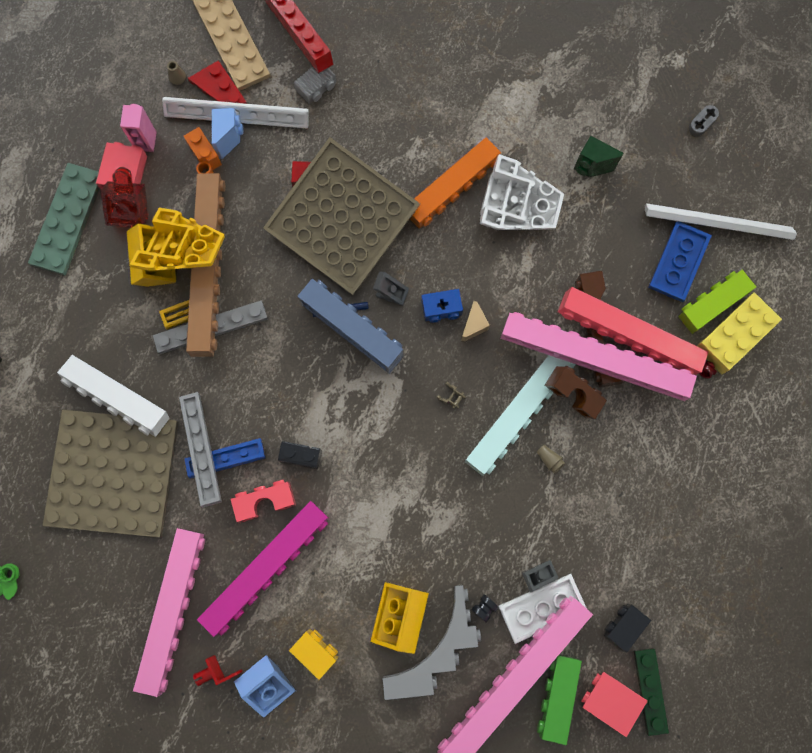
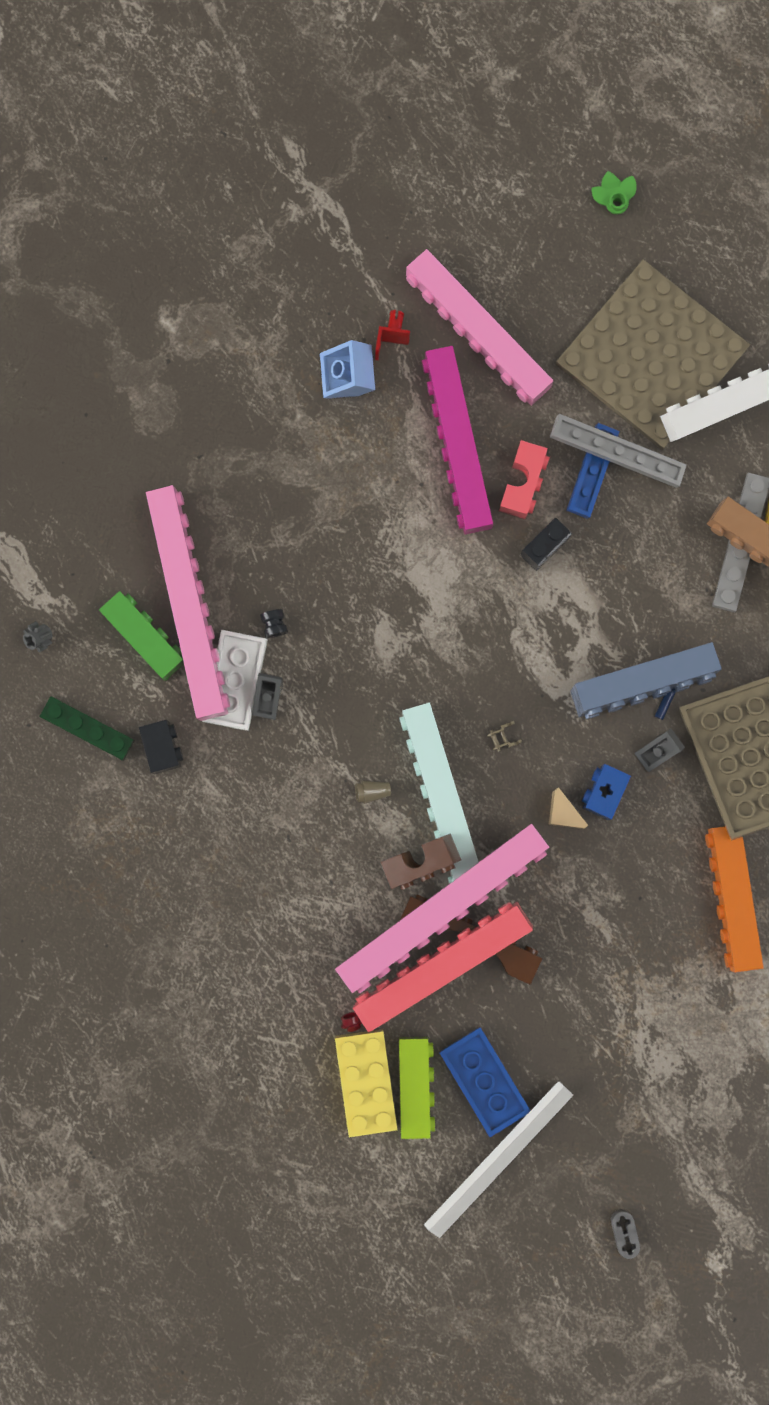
camera: 125 degrees right, 5 degrees up
(314, 653) = (345, 433): yellow brick -> none
(399, 618) = (322, 536): yellow slope -> none
(419, 679) = (253, 517): light grey arch -> none
(519, 199) = (667, 954): white wedge -> none
(597, 158) = (658, 1071): dark green slope -> none
(613, 703) = (102, 682): coral brick -> none

